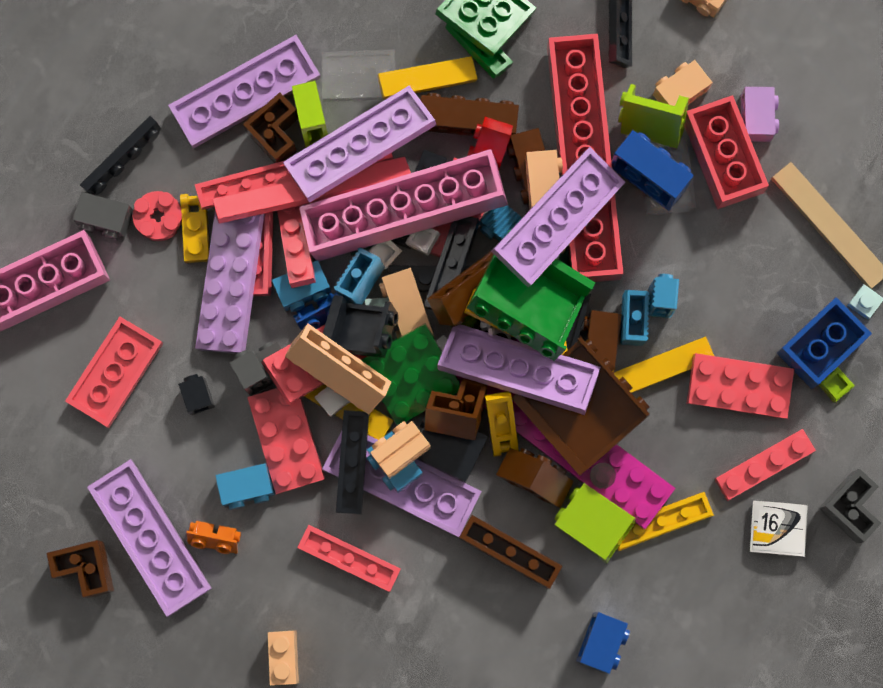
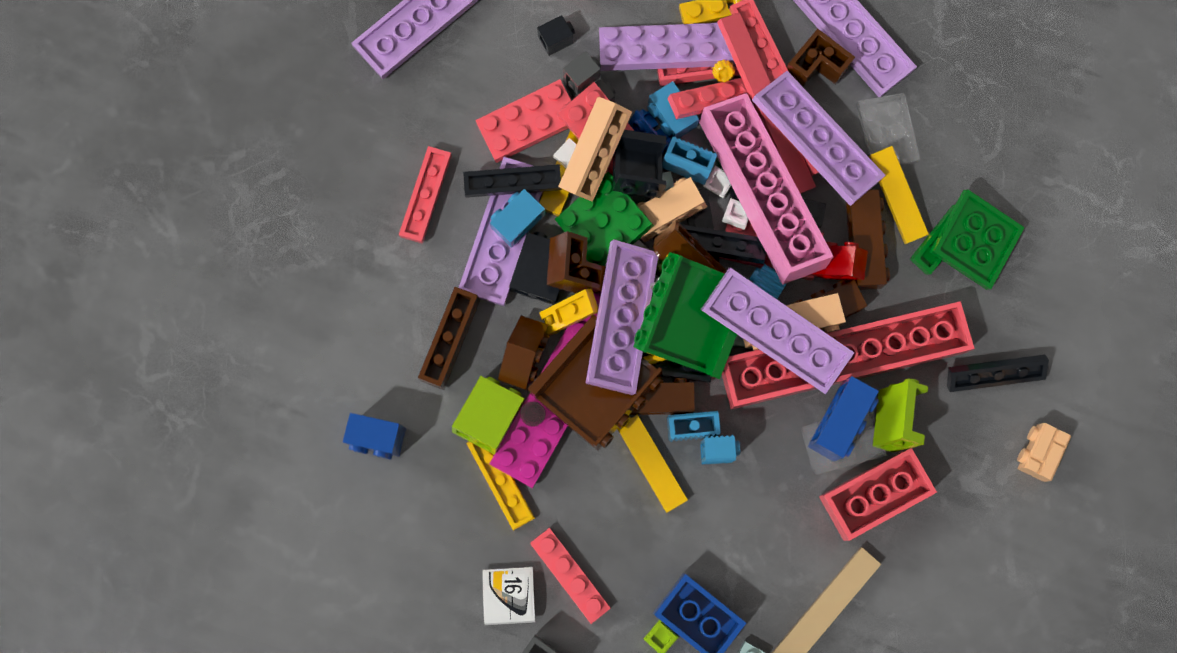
camera: 80 degrees right, 0 degrees up
(202, 536) = (428, 63): orange hinge -> none
(244, 486) = (478, 89): dark azure brick -> none
(270, 226) = (723, 71): none -> yellow piece
(283, 657) = (326, 149): light nougat brick -> none
(309, 112) = (841, 90): lime slope -> none
(399, 449) = (527, 216): light nougat brick -> none
(687, 82) = (939, 445): light nougat brick -> none
(740, 386) = (643, 541): coral plate -> none
(758, 112) = (924, 524): lavender brick -> none

